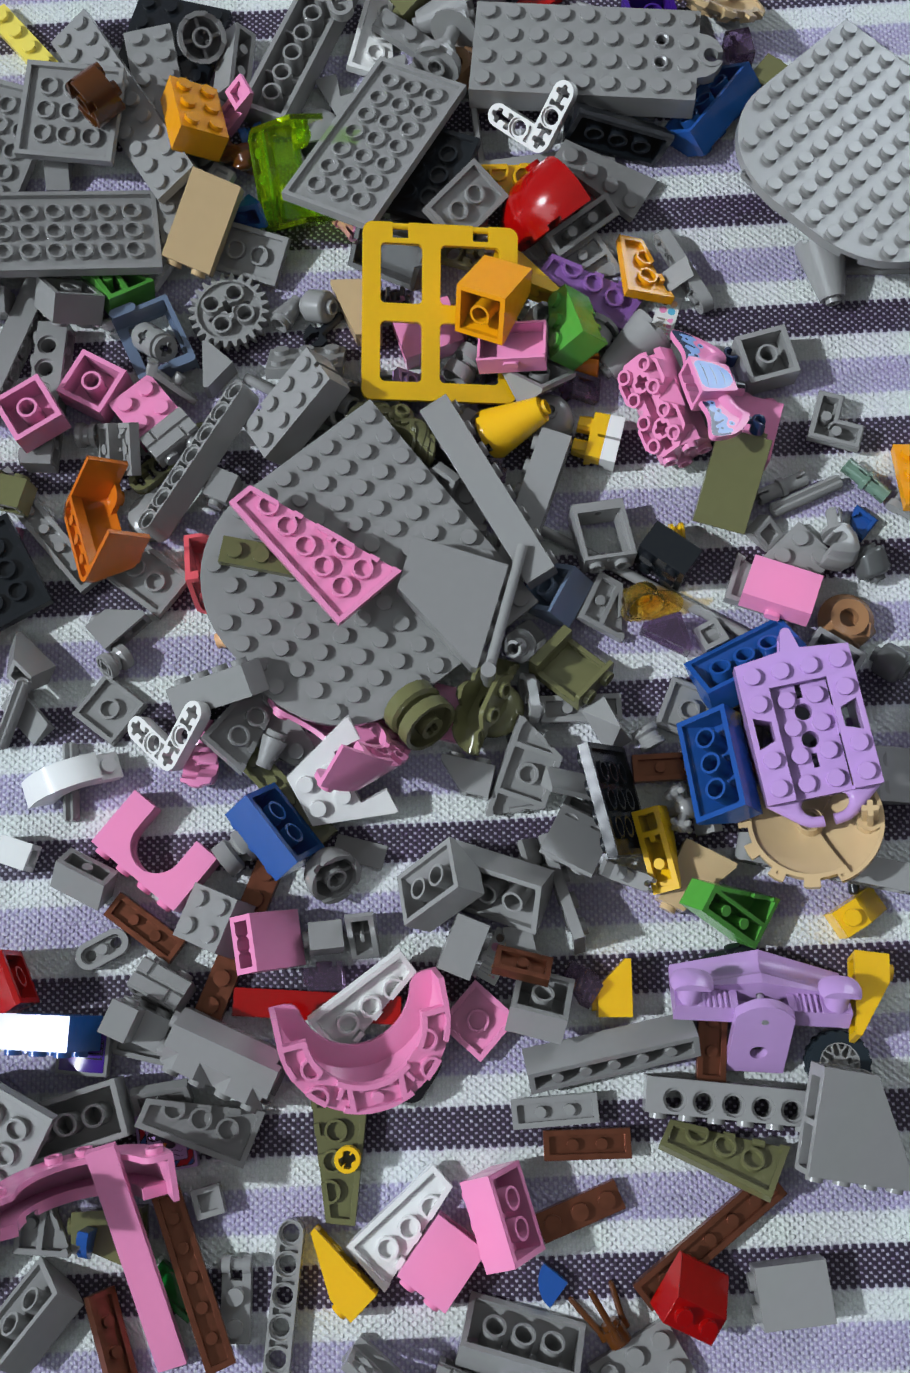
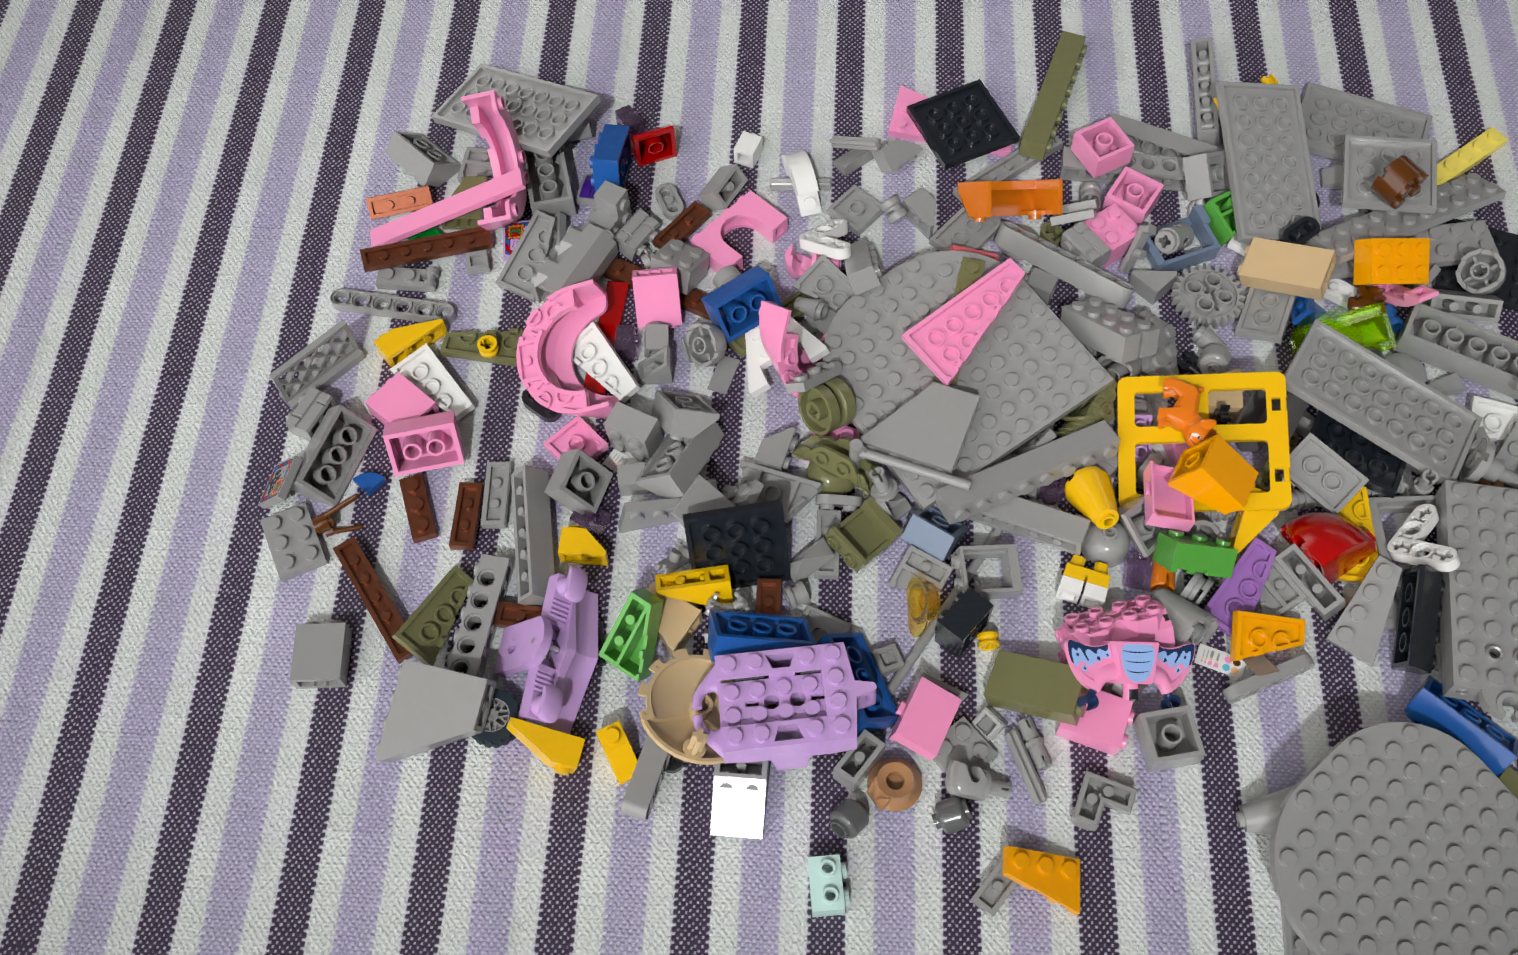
camera: 90 degrees right, 15 degrees down
(85, 1239) = (464, 180): blue tile -> none
(157, 211) = (1297, 232): none -> black plate
(199, 962) = (646, 258): none -> light grey plate
(394, 727) = (814, 377): none -> light grey plate
(415, 323) = (1185, 415): none -> orange animal
(461, 116) = (1424, 484): none -> light grey pin
(522, 965) = (611, 468): copper plate -> none
(540, 807) = (743, 493): none -> light grey plate
(668, 632) = (892, 624): clear purple slope -> none
(693, 1298) = (334, 574): red slope -> none
(862, 522) = (996, 818): blue tile -> none
(866, 480) = (1052, 814): sand green pin -> none

